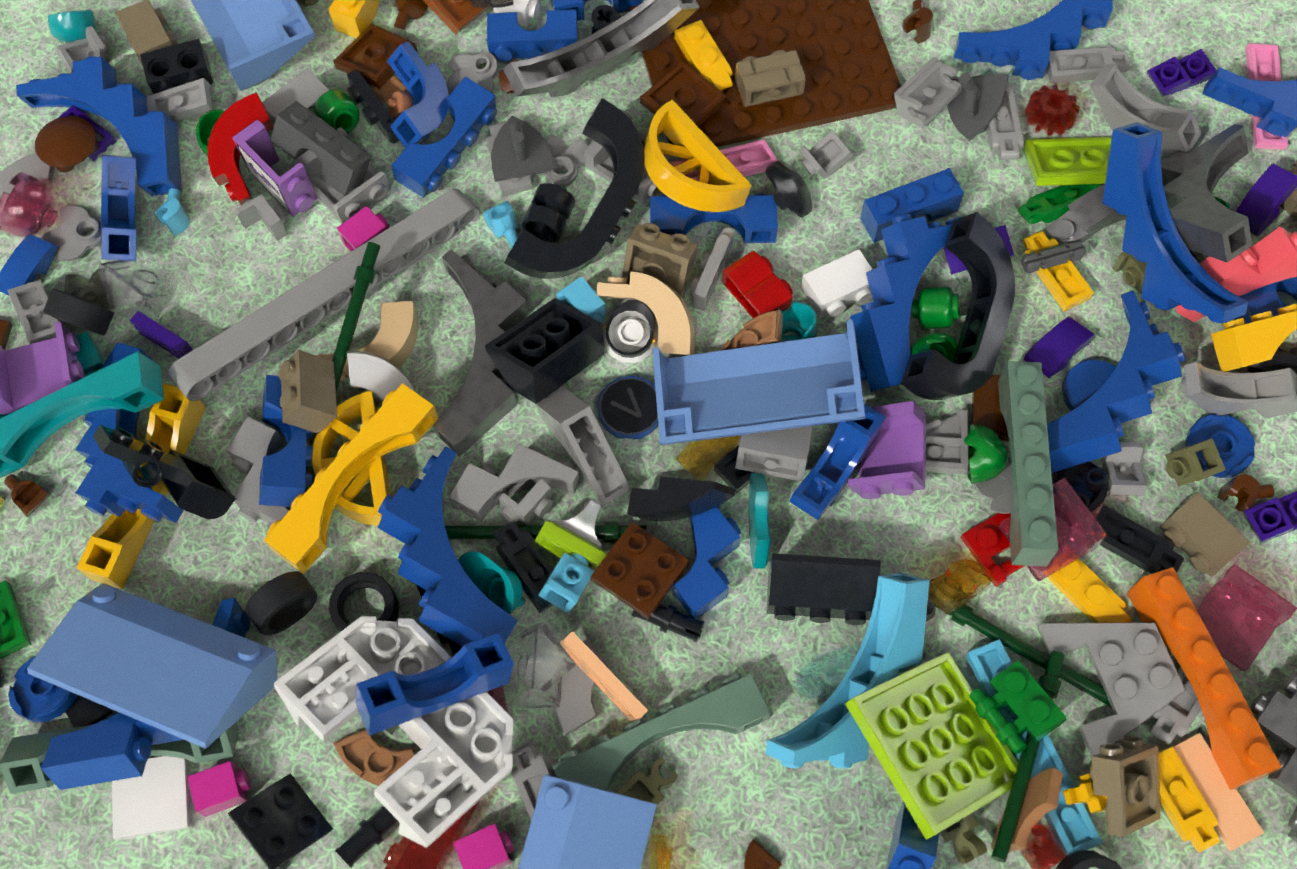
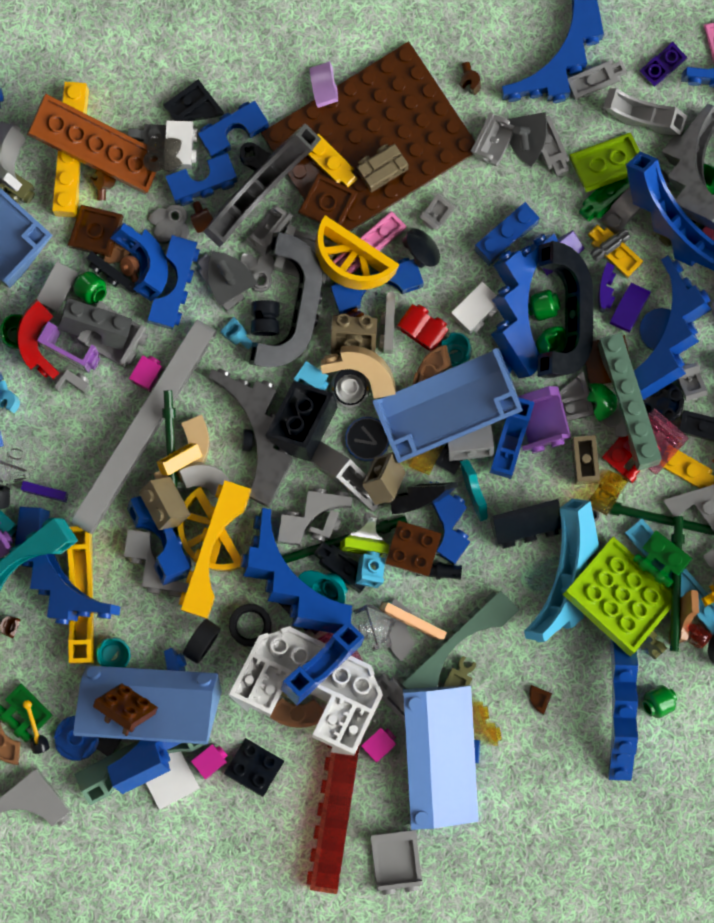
camera: 20 degrees left, 15 degrees up
(107, 650) = (125, 707): none -> reddish brown plate
(148, 575) = (107, 650): none -> teal hair
(190, 482) = (104, 582): black plate -> none
(353, 339) = (179, 459): none -> yellow piece
(366, 836) = (307, 757): black pin -> none
(462, 357) = (247, 440): none -> black tile
(576, 120) = (275, 221): none -> light grey hinge
(631, 459) = (384, 479): none -> dark tan brick
(937, 527) = (585, 460): none -> dark tan brick
(1031, 312) = (605, 296): none -> dark purple slope
(1052, 110) = (573, 122): clear red gear -> none

